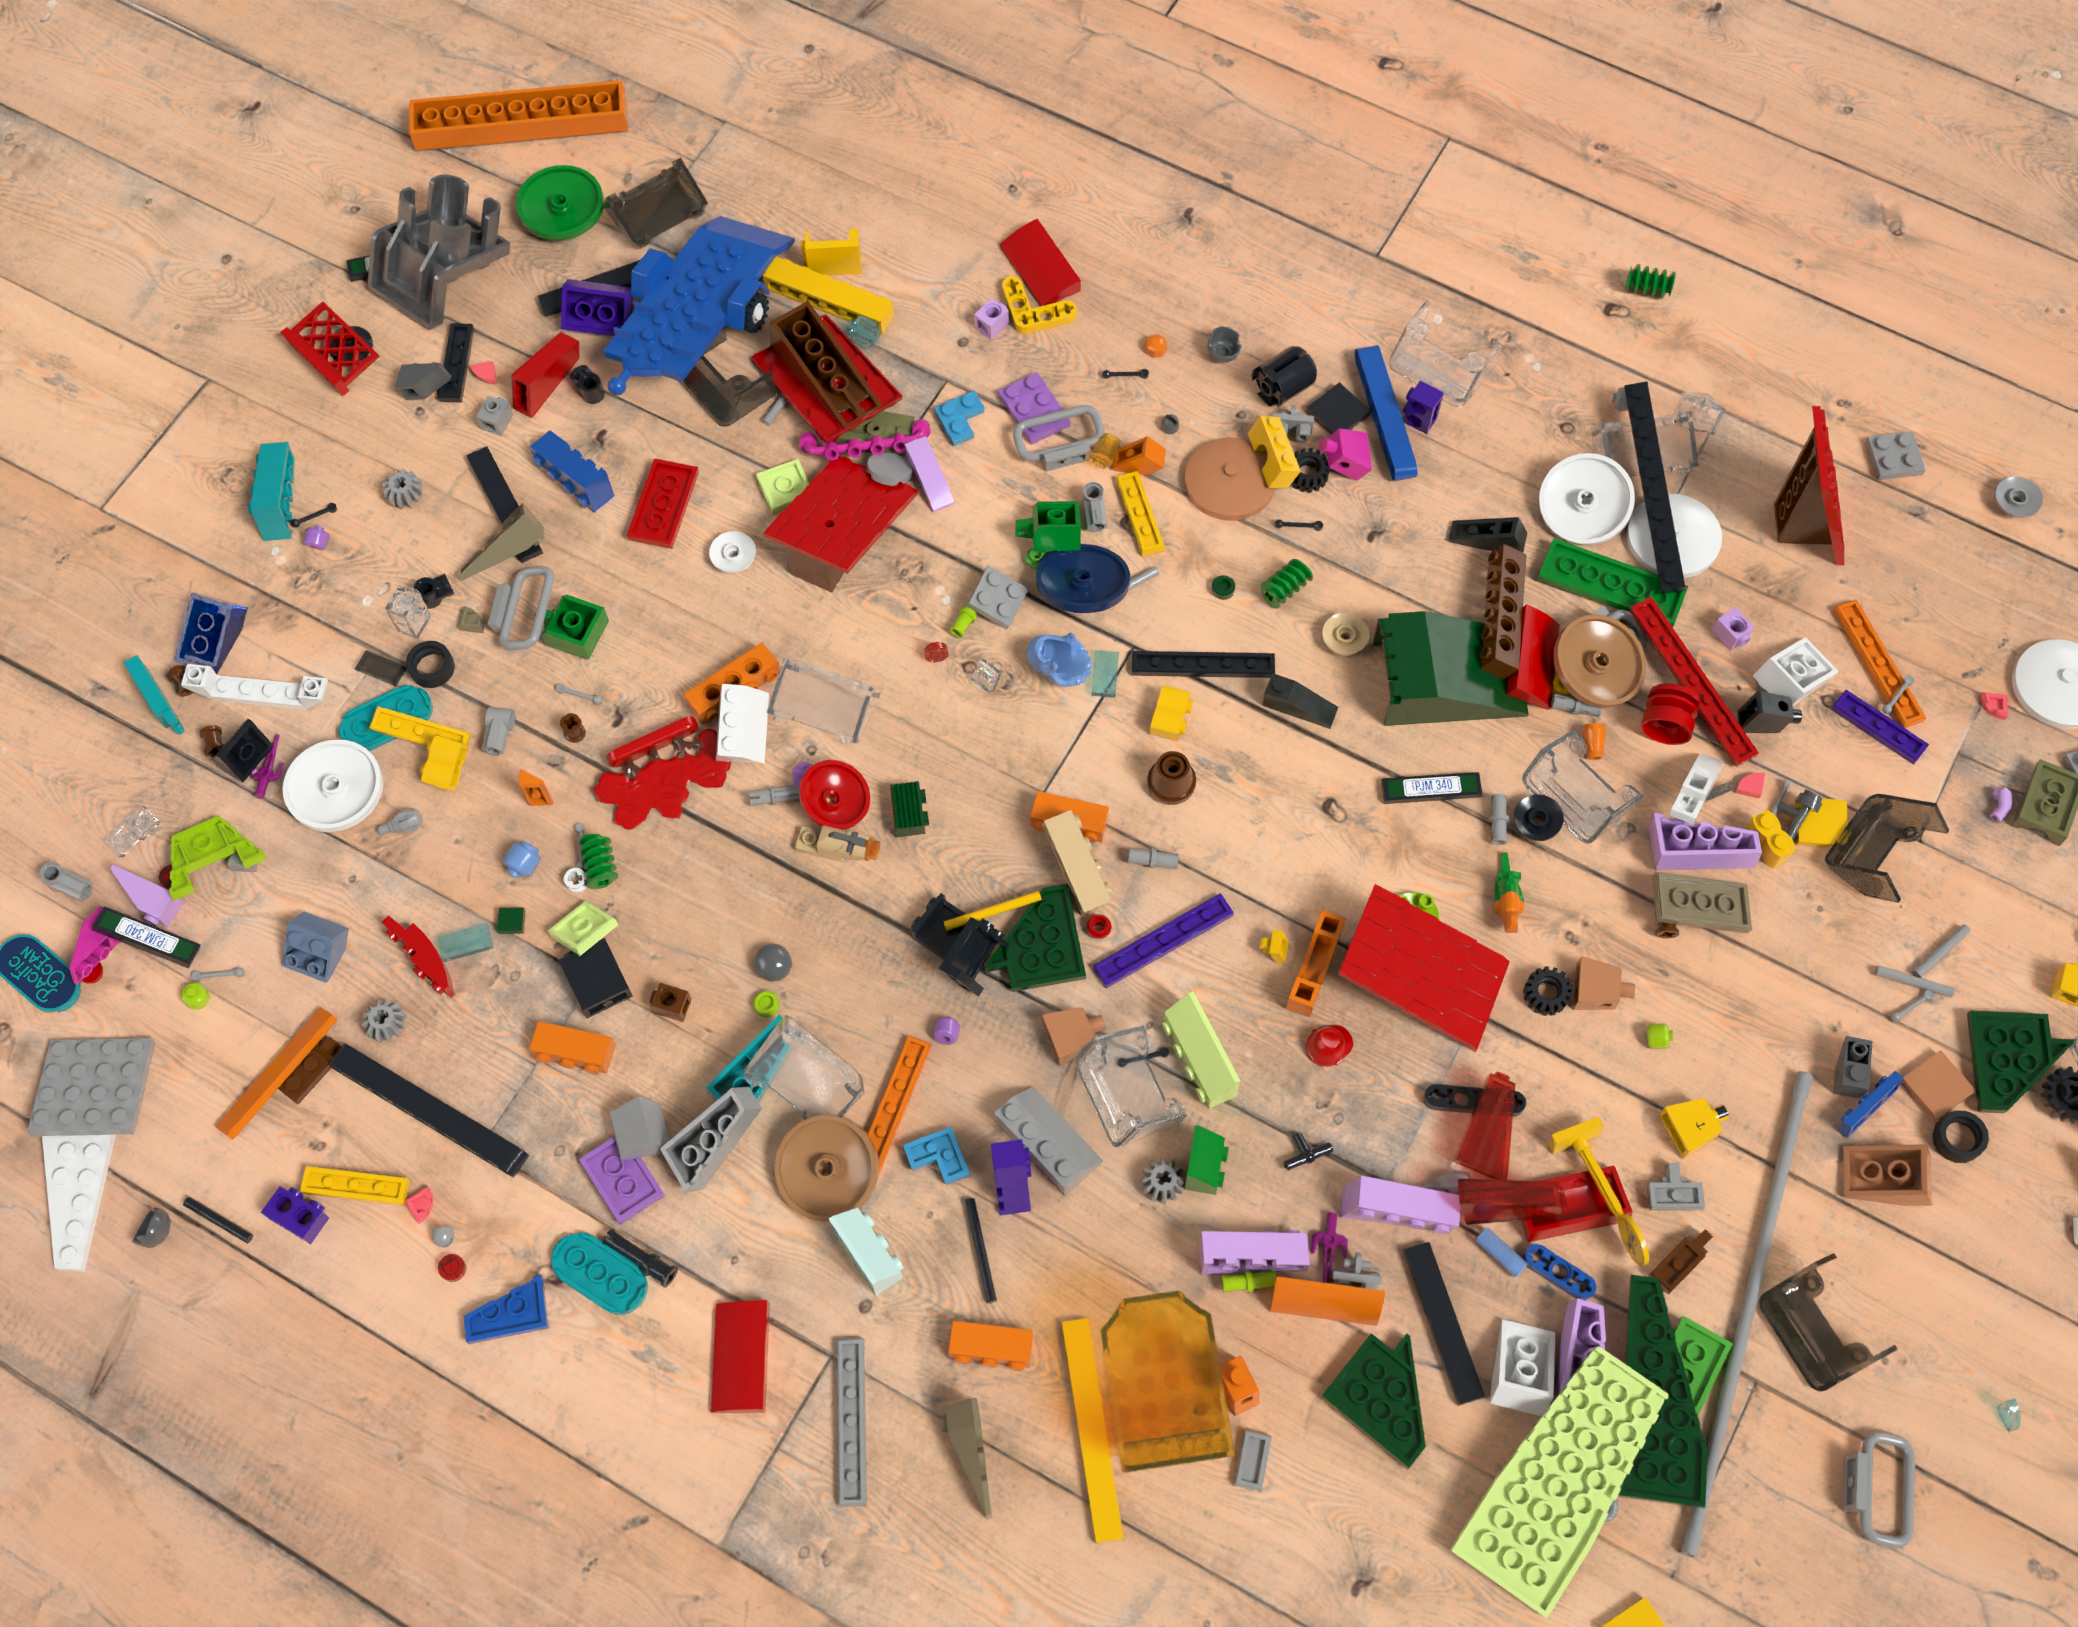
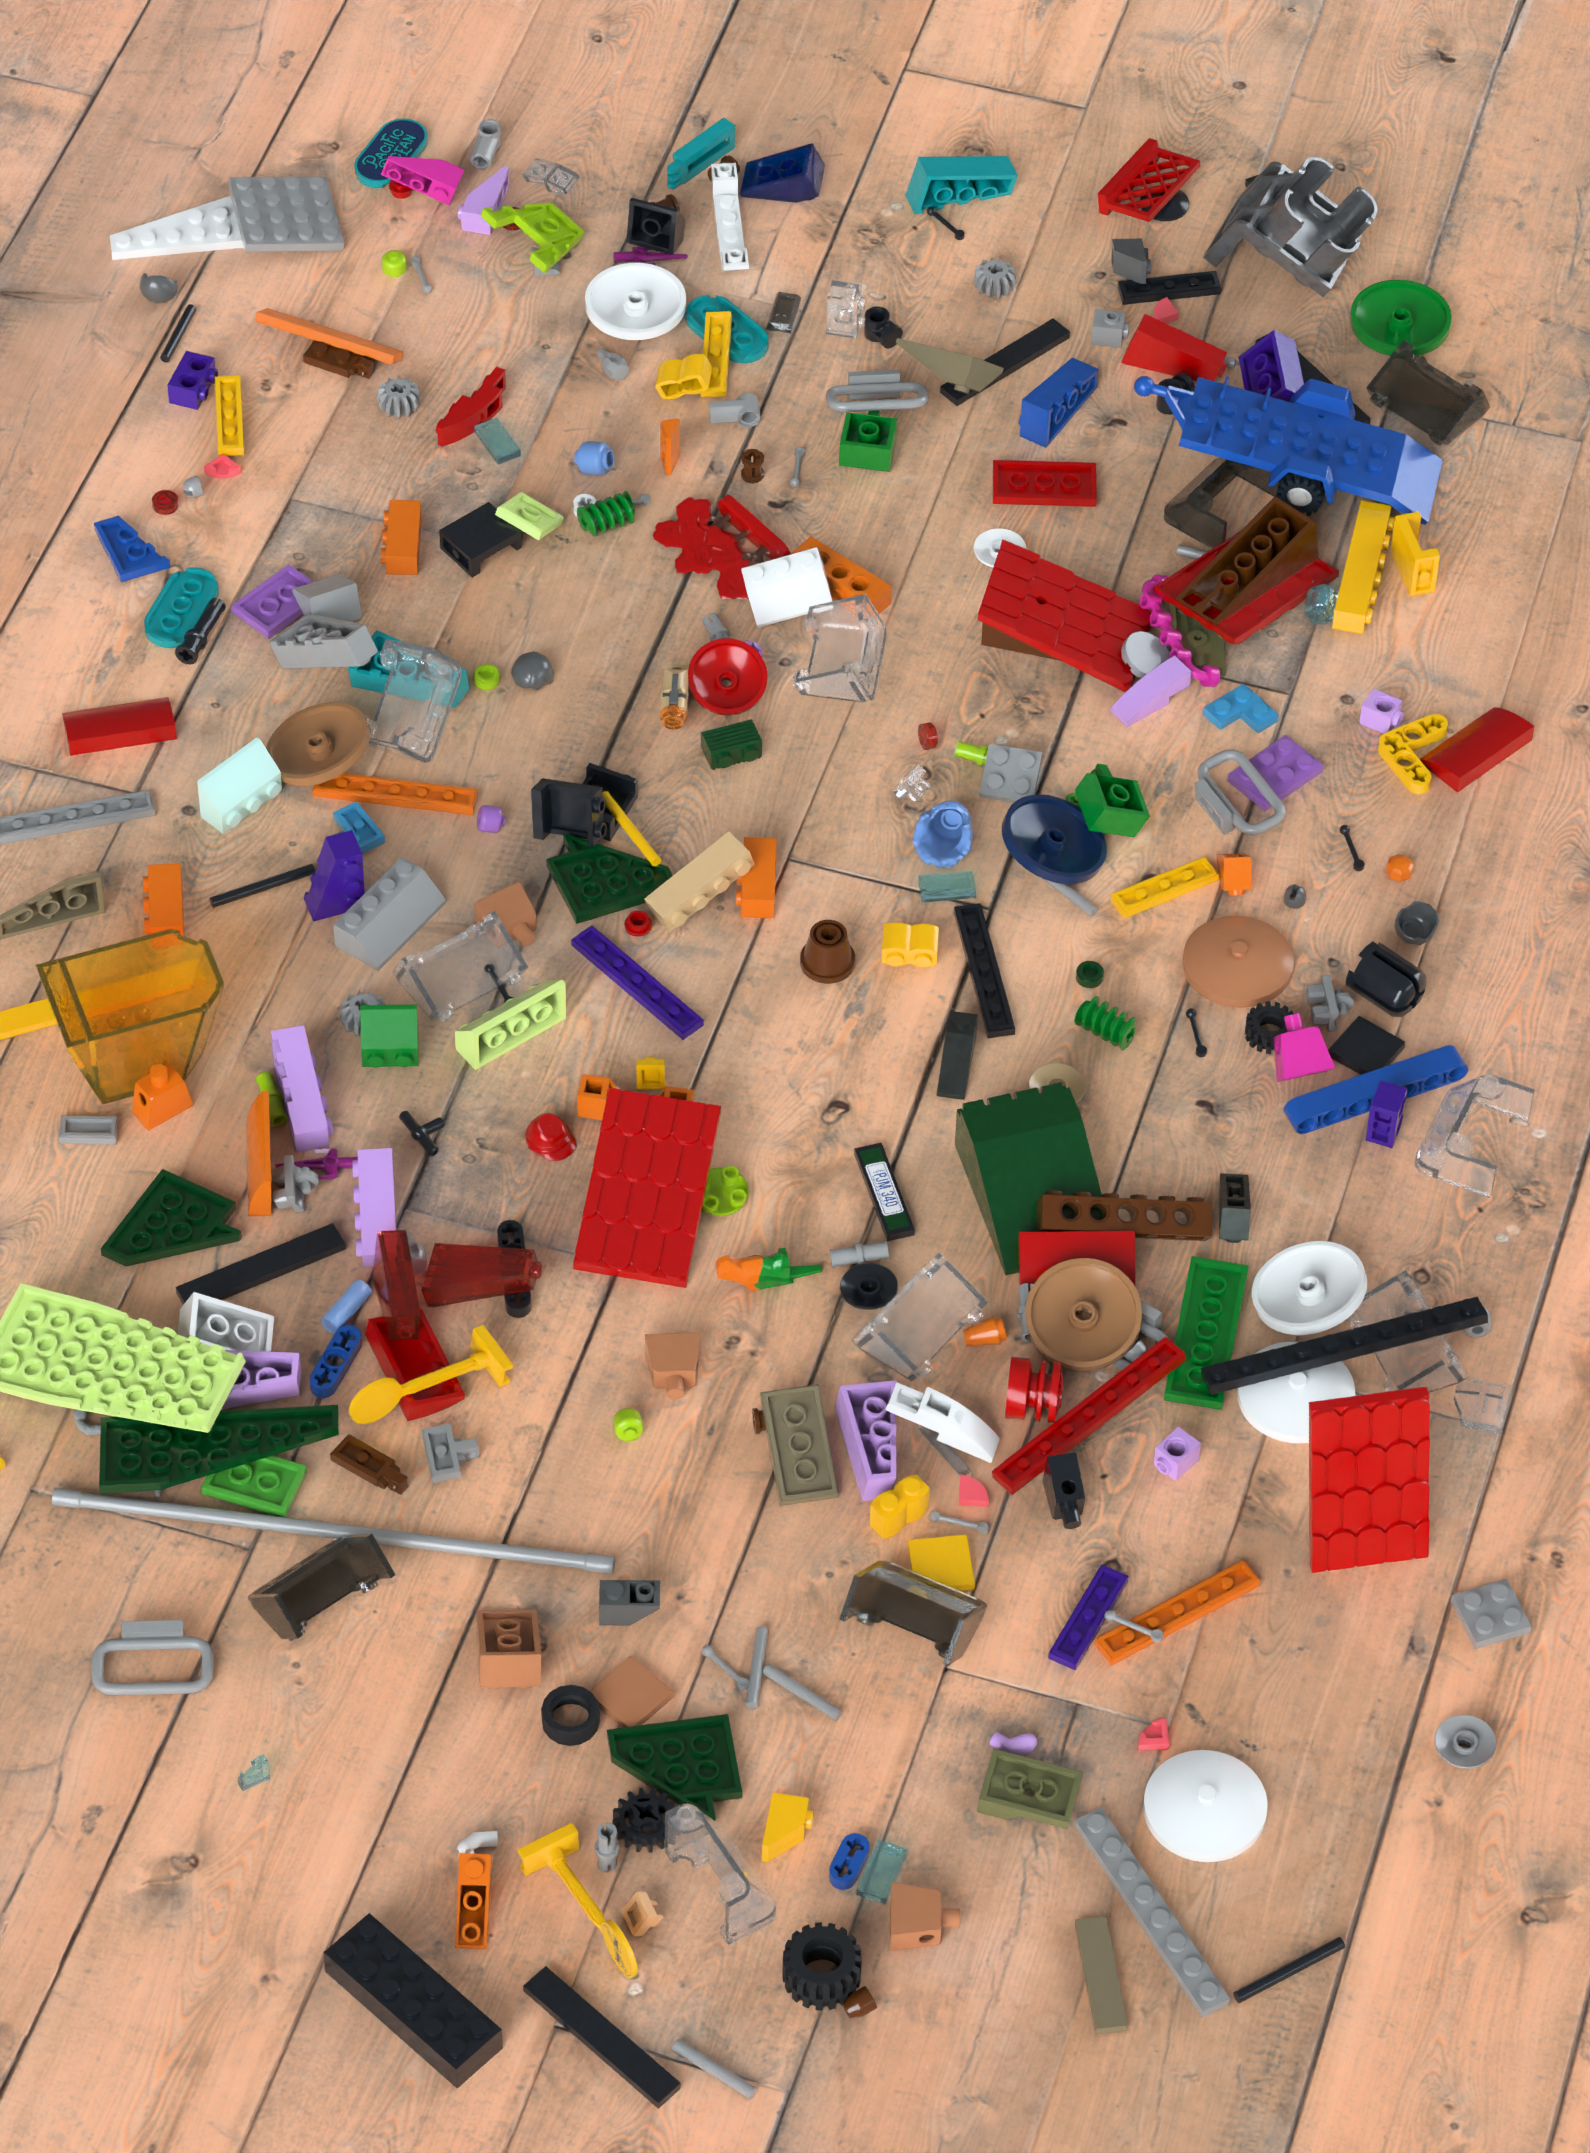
camera: 75 degrees right, 15 degrees down
(146, 937) = (440, 209): tile -> none
(314, 946) = (464, 329): sand blue slope -> none
(316, 538) = (917, 229): medium lavender piece -> none
(422, 650) = (795, 358): black tyre -> none
(429, 1110) = (315, 449): black beam -> none
(471, 621) = (857, 364): dark tan tile -> none
(511, 920) = (528, 468): dark green tile -> none
(518, 115) = (1508, 261): orange brick -> none
(675, 1011) = (468, 600): reddish brown brick -> none
(782, 484) = (1107, 573): yellowish green tile -> none
(1094, 507) = (1163, 839): light grey piece -> none
(1105, 451) = (1232, 838): clear yellow brick -> none
(1153, 858) = (729, 956): light grey pin -> none
(1281, 465) = (1275, 980): yellow arch -> none
(1547, 1005) = (652, 1305): black tyre -> none
(1693, 1124) = (526, 1461): yellow torso -> none
(1795, 671) = (1135, 1521): white slope -> none
(1809, 802) = (951, 1531): dark grey piece -> none
(1870, 1103) = (589, 1624): blue plate -> none

